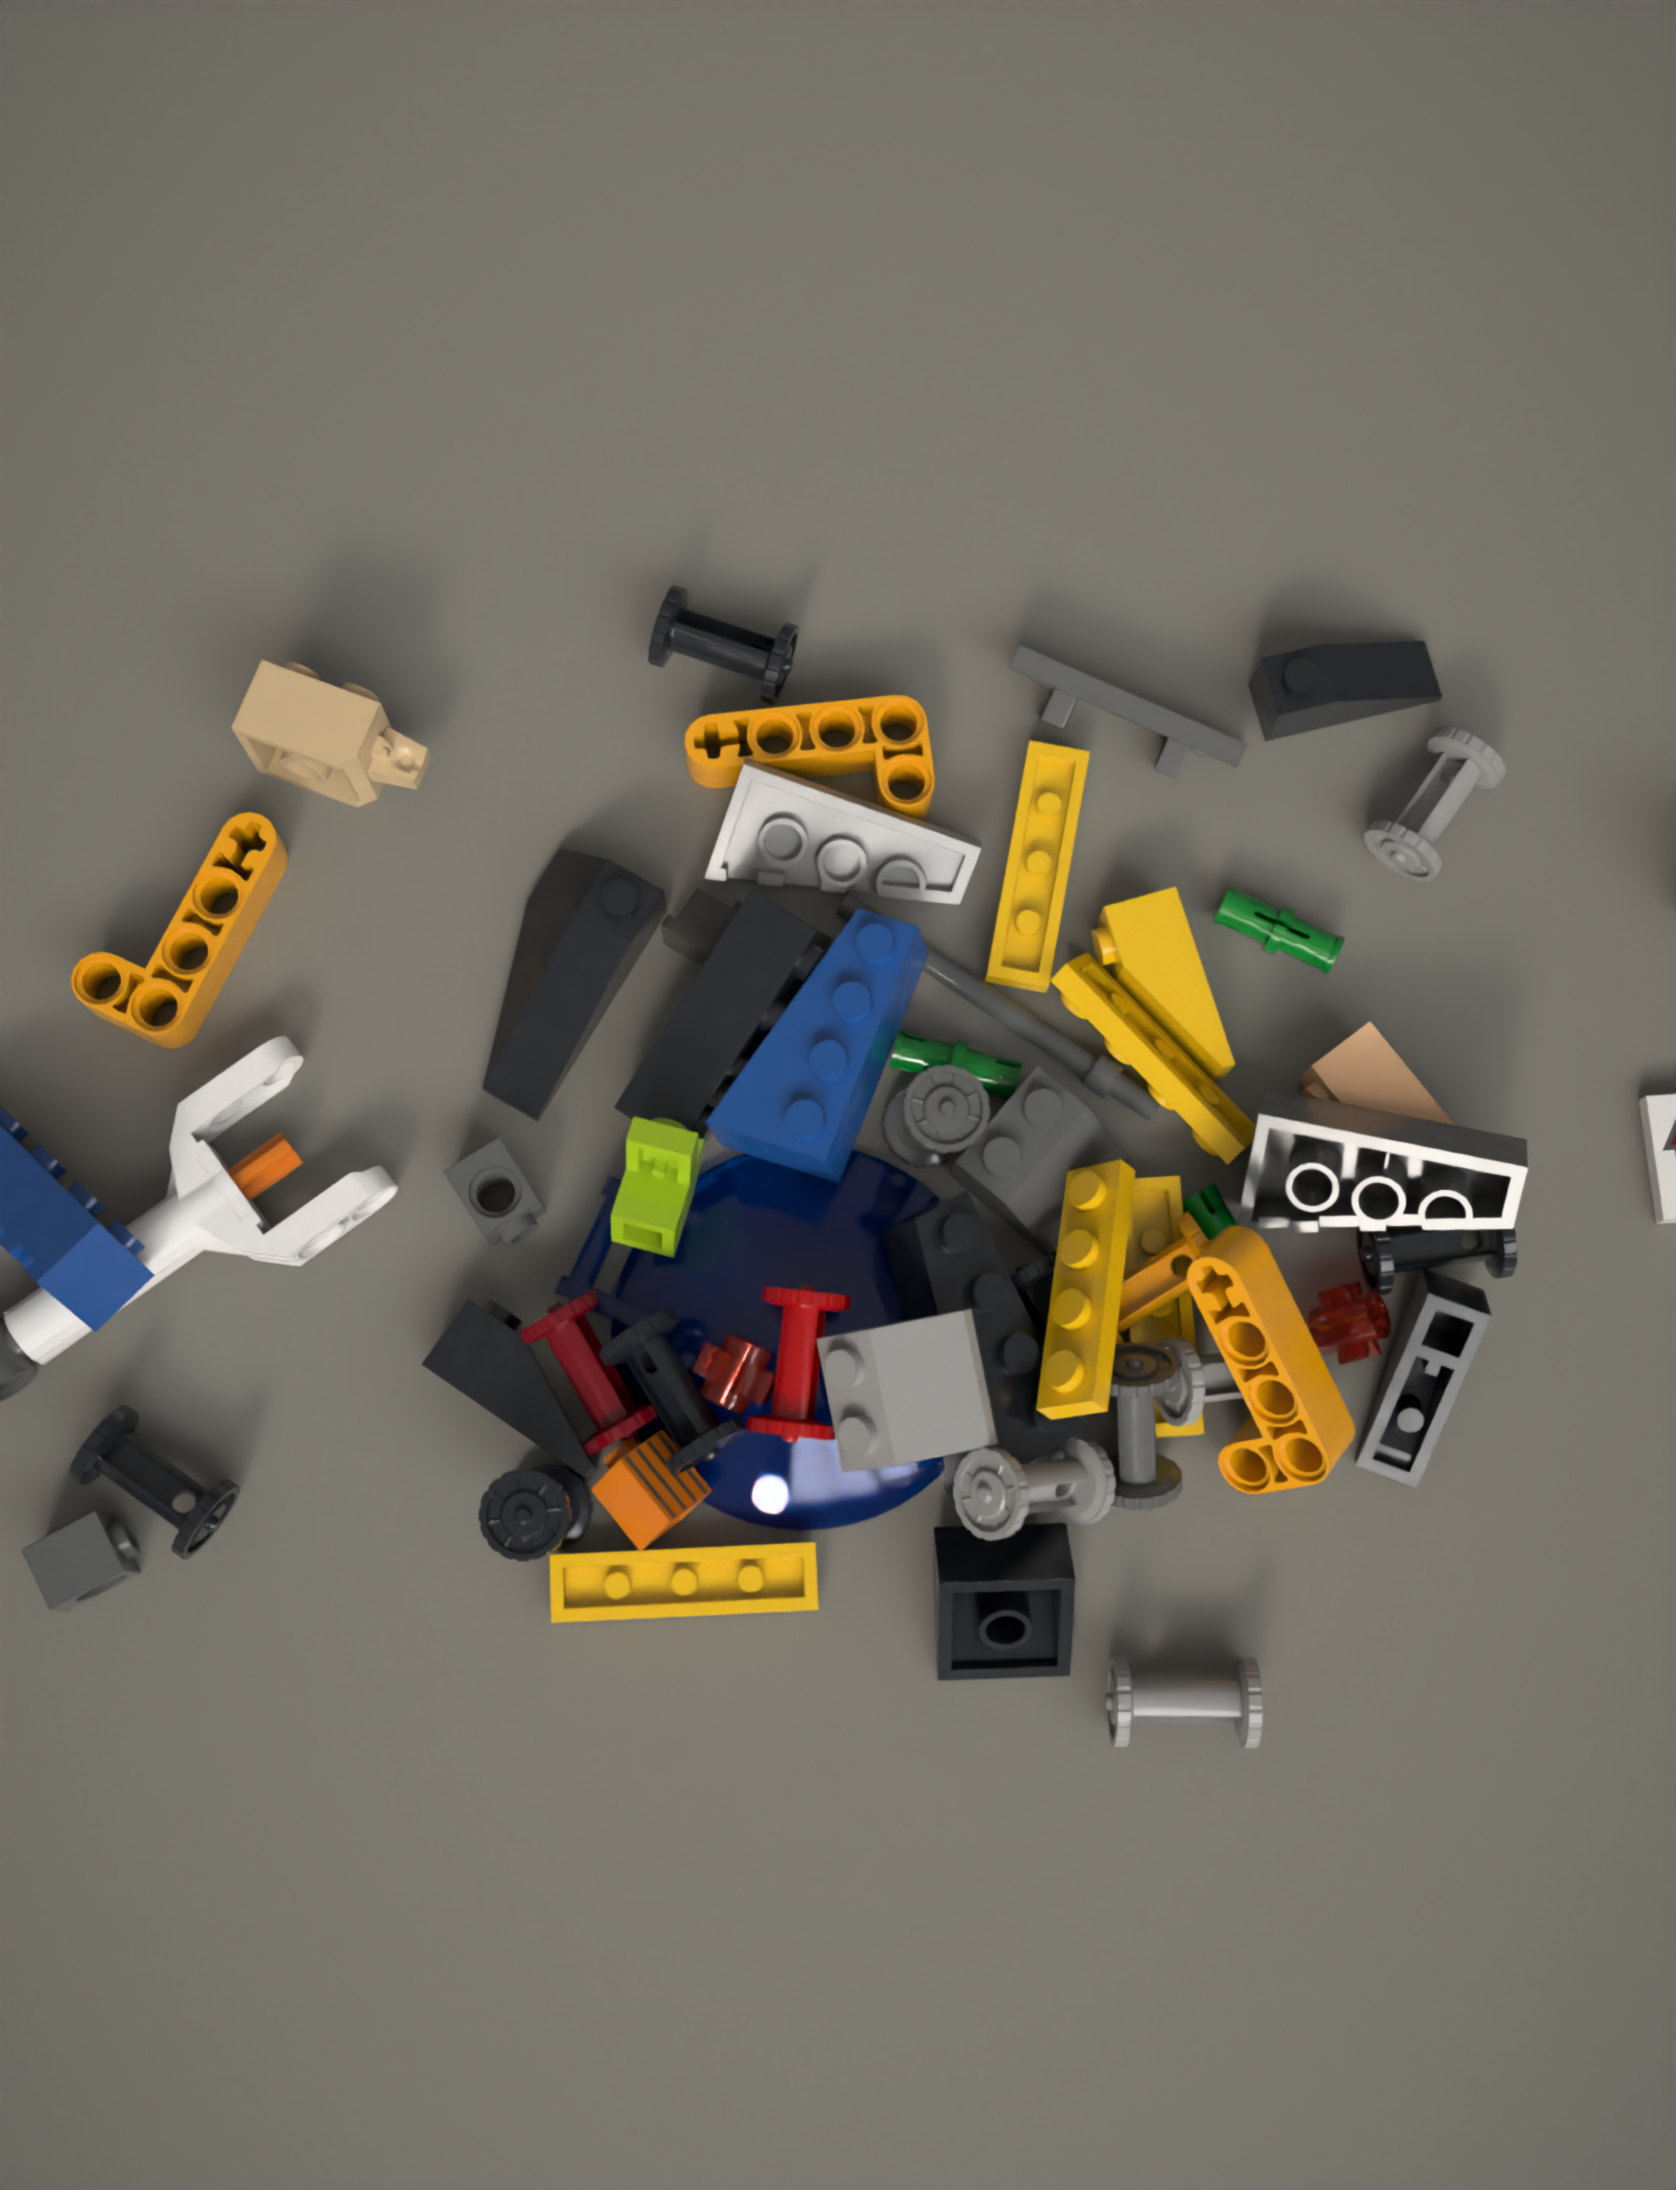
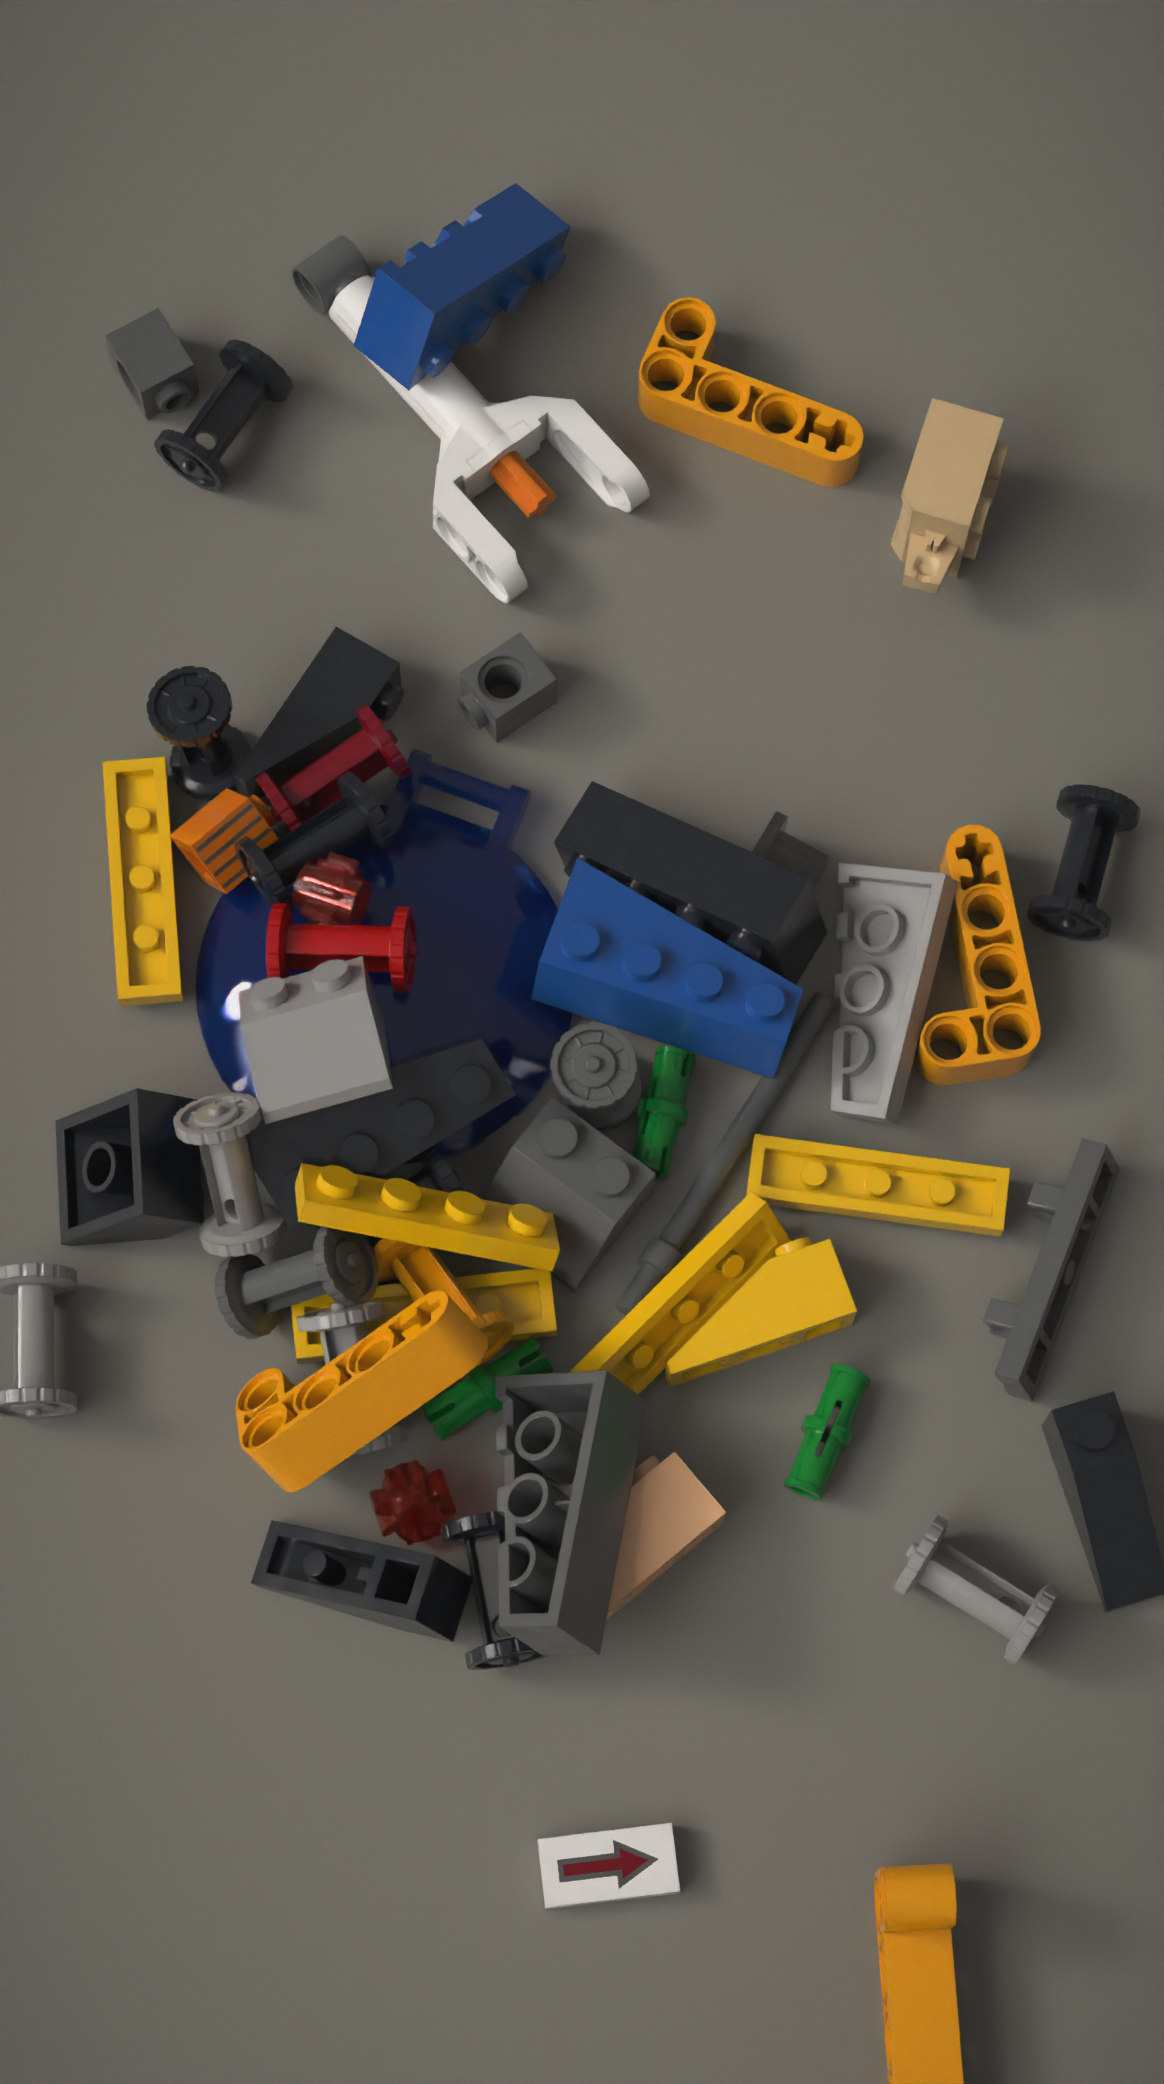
camera: 90 degrees right, 5 degrees down
(569, 963) = (736, 744): black wedge -> none
(656, 1185) = (513, 819): lime brick -> none

